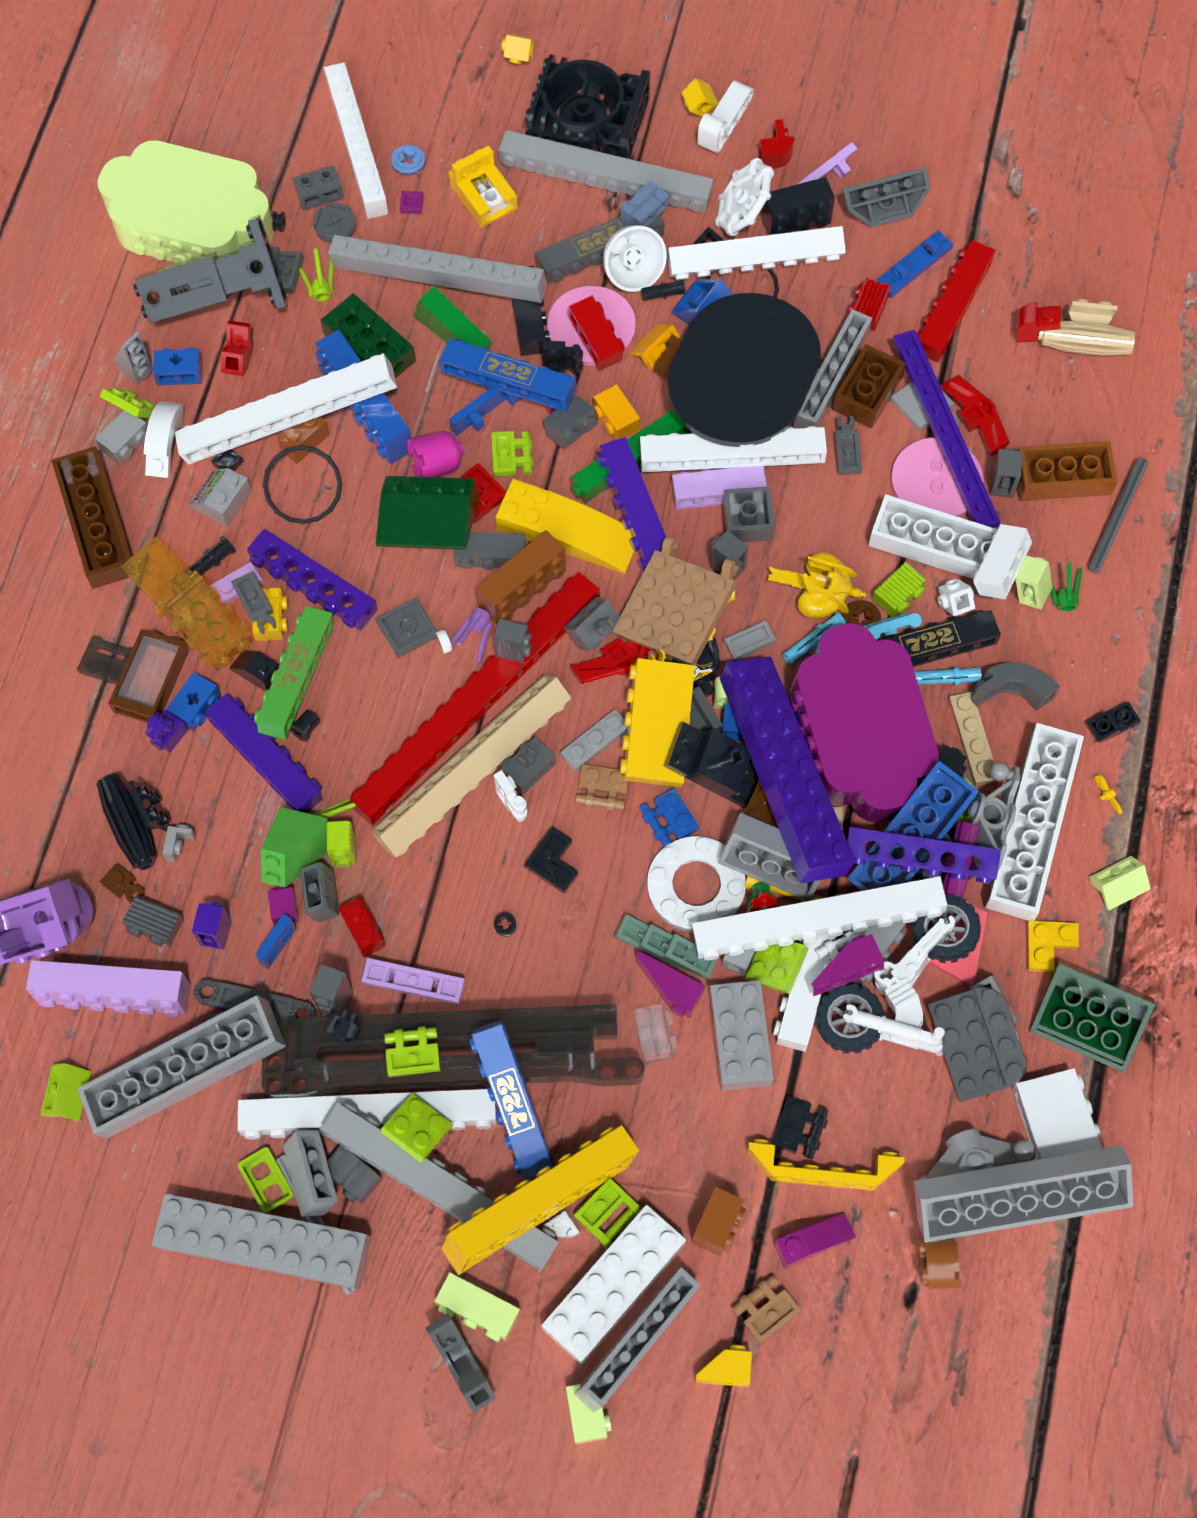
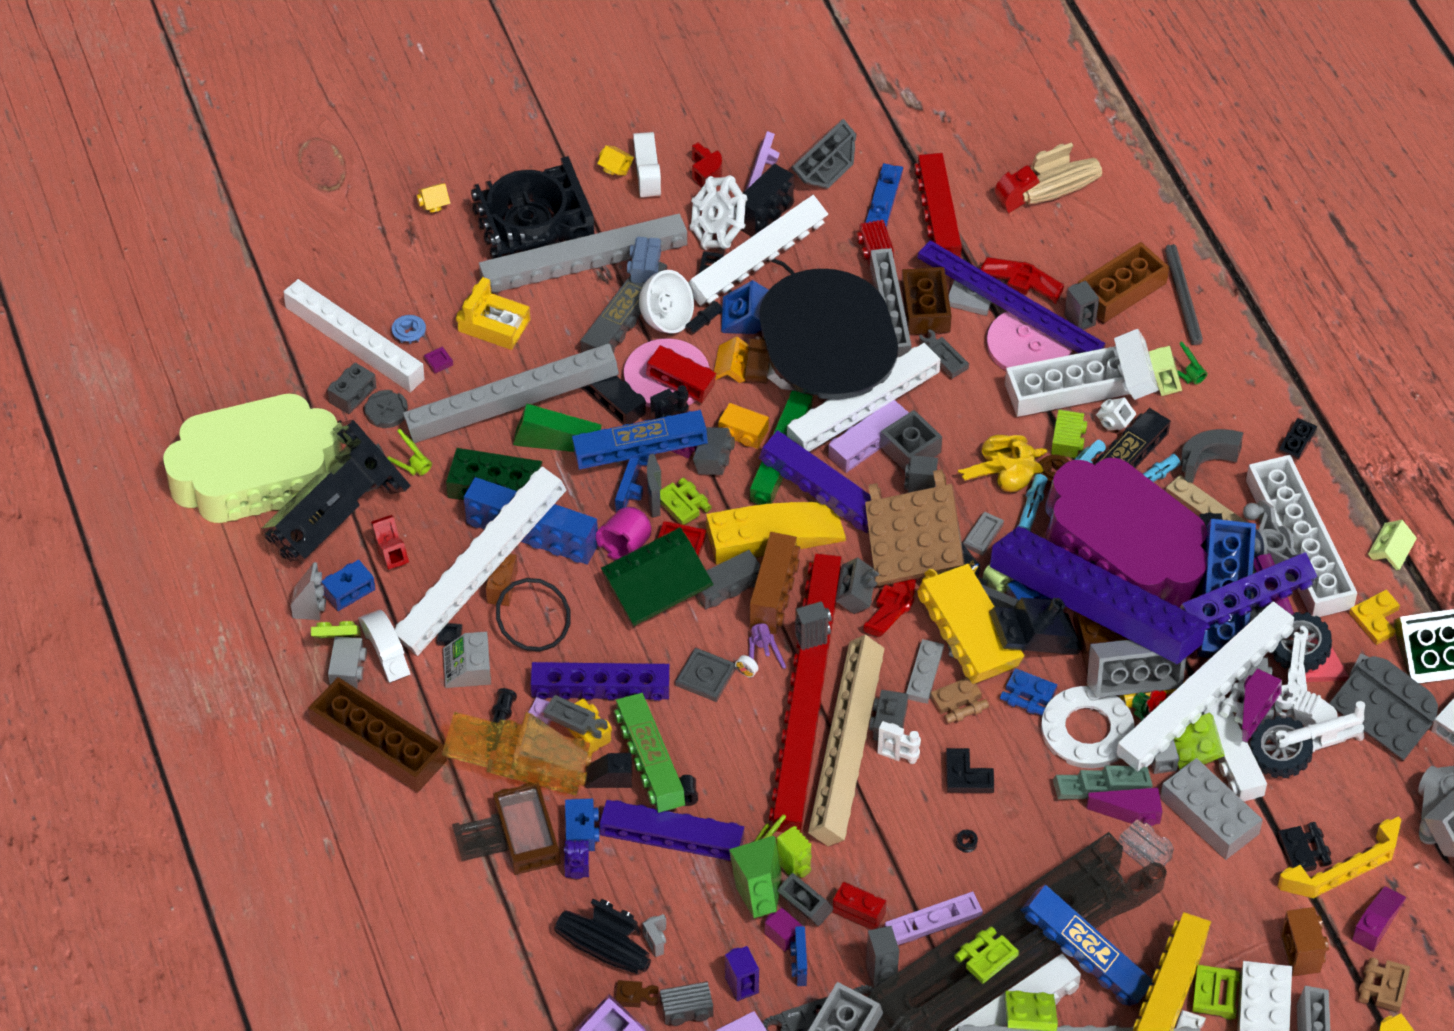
camera: 35 degrees left, 15 degrees down
(343, 1027) = (918, 963): black piece -> none
(491, 420) = (653, 486): none -> dark grey slope
(1108, 794) = (1334, 490): yellow piece -> none

